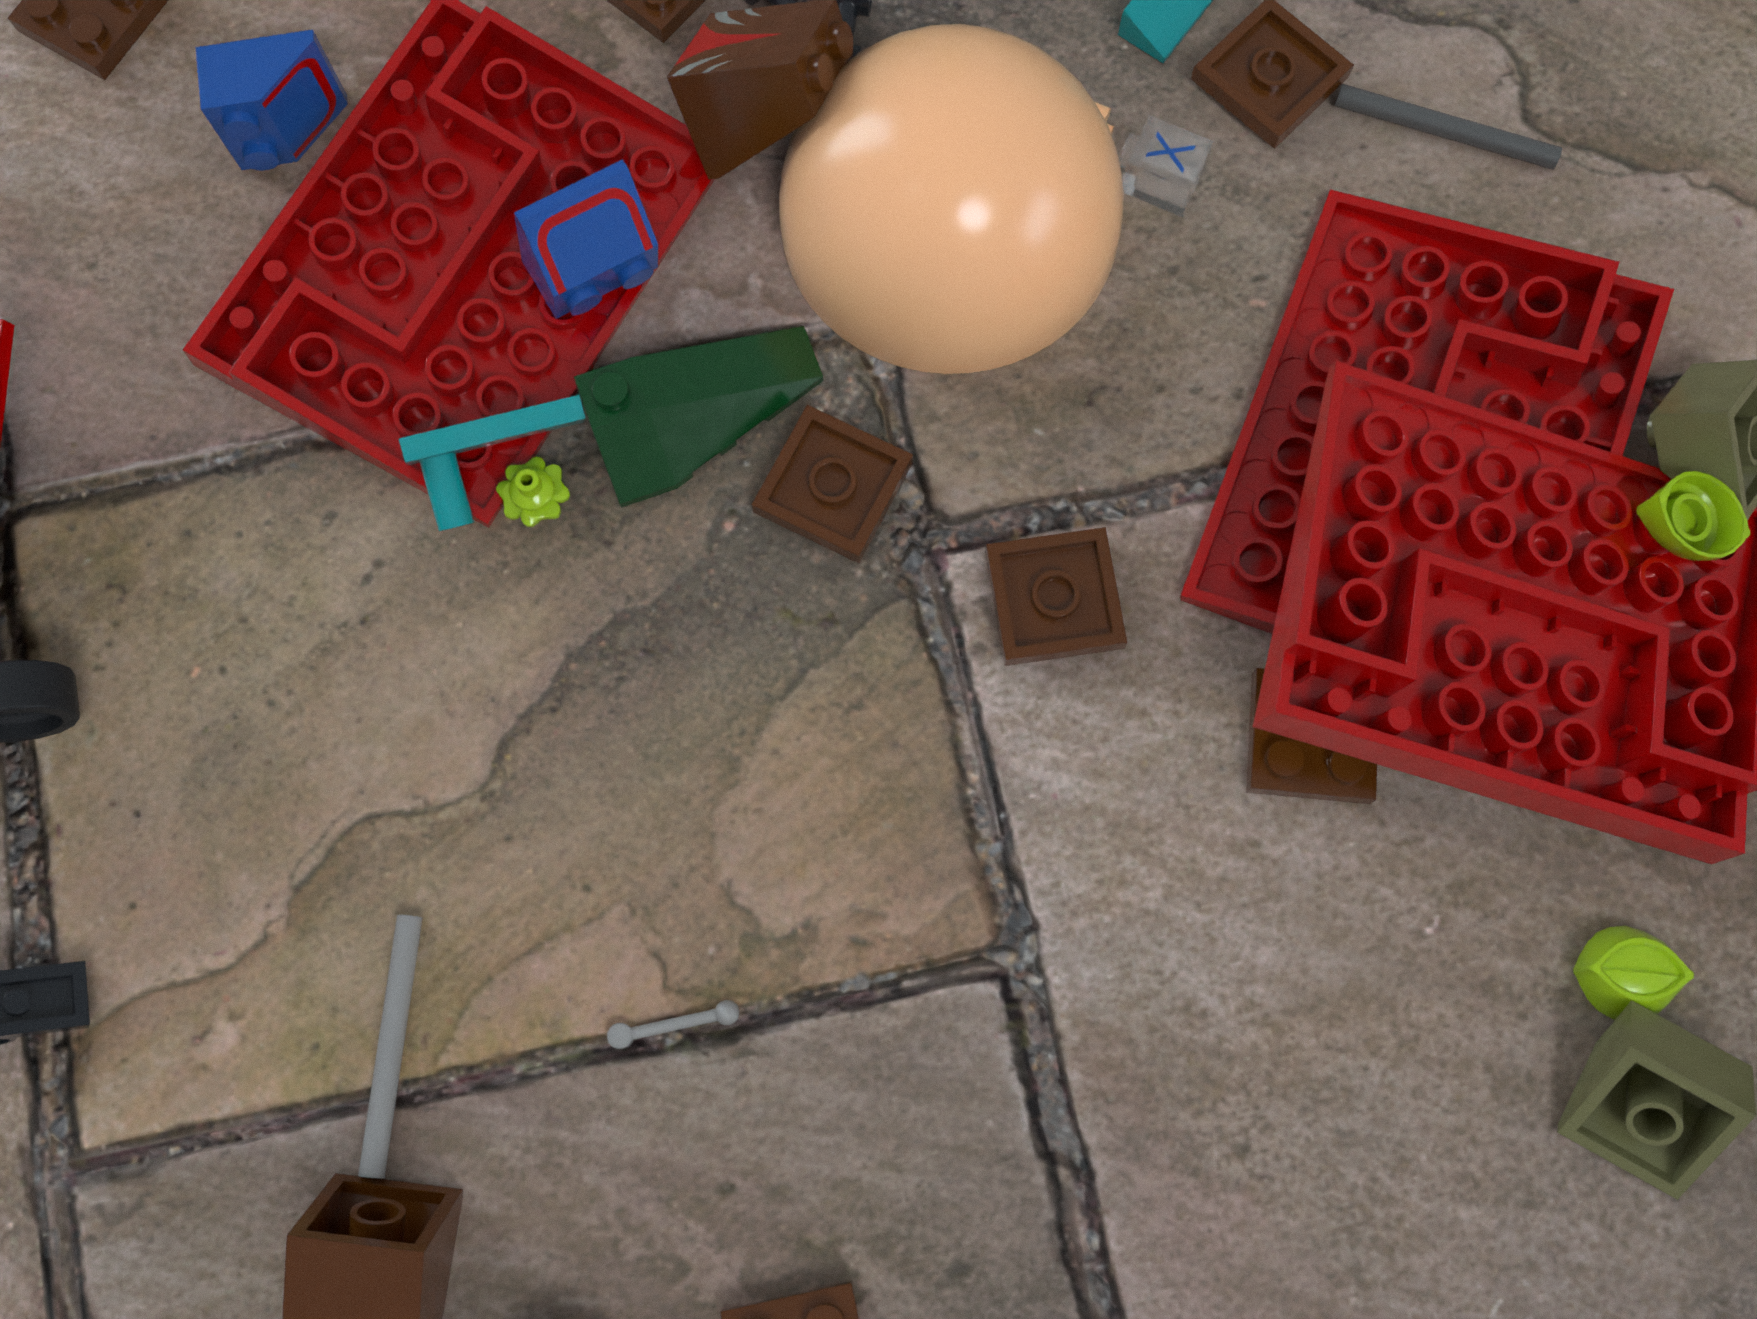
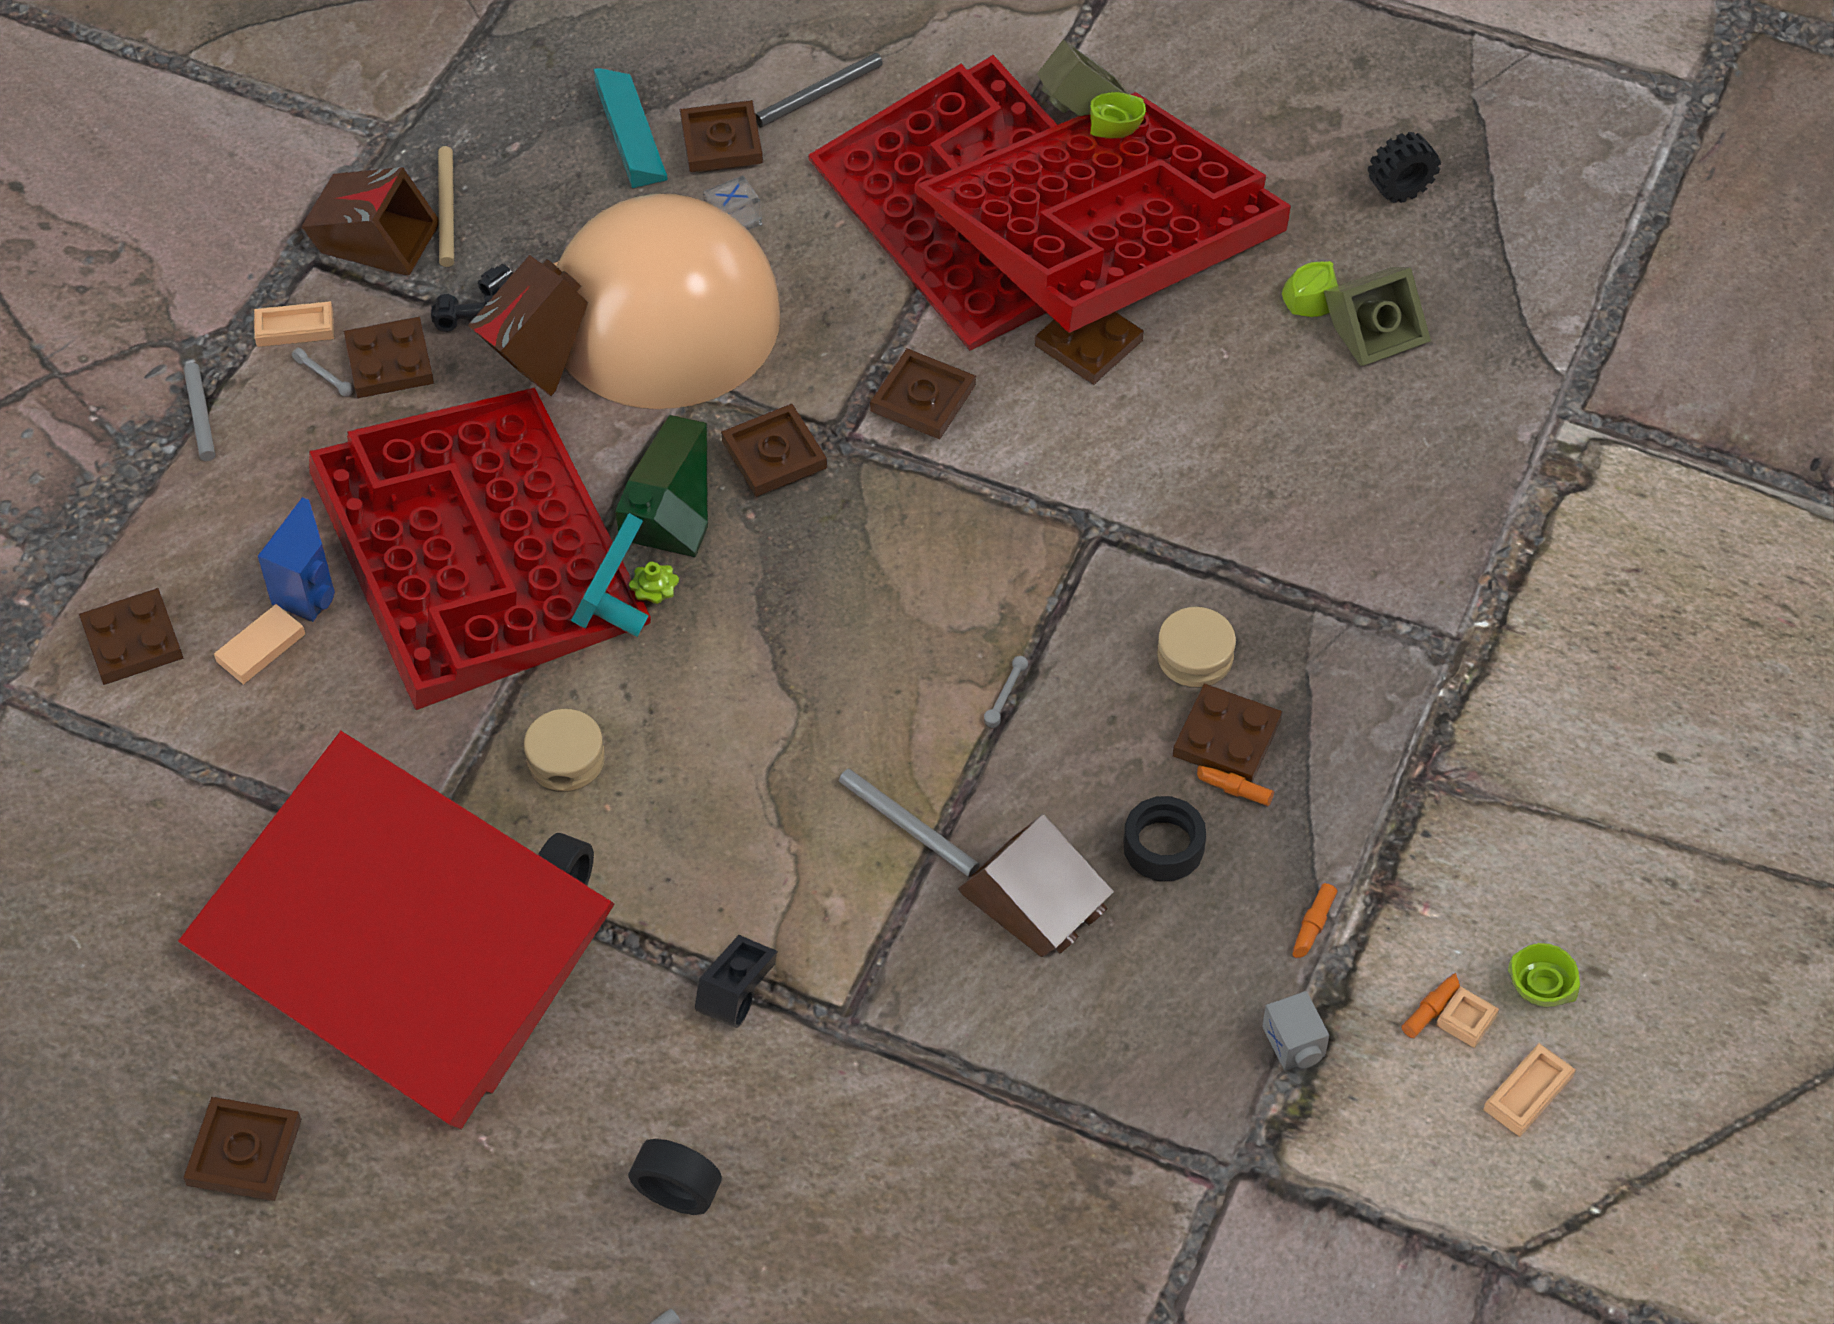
camera: 55 degrees left, 20 degrees down
(161, 141) = (259, 644): none -> light nougat tile
(222, 569) = (564, 749): none -> tan head
(587, 241) = (544, 462): blue slope -> none
(902, 1233) = (1196, 646): none -> tan head

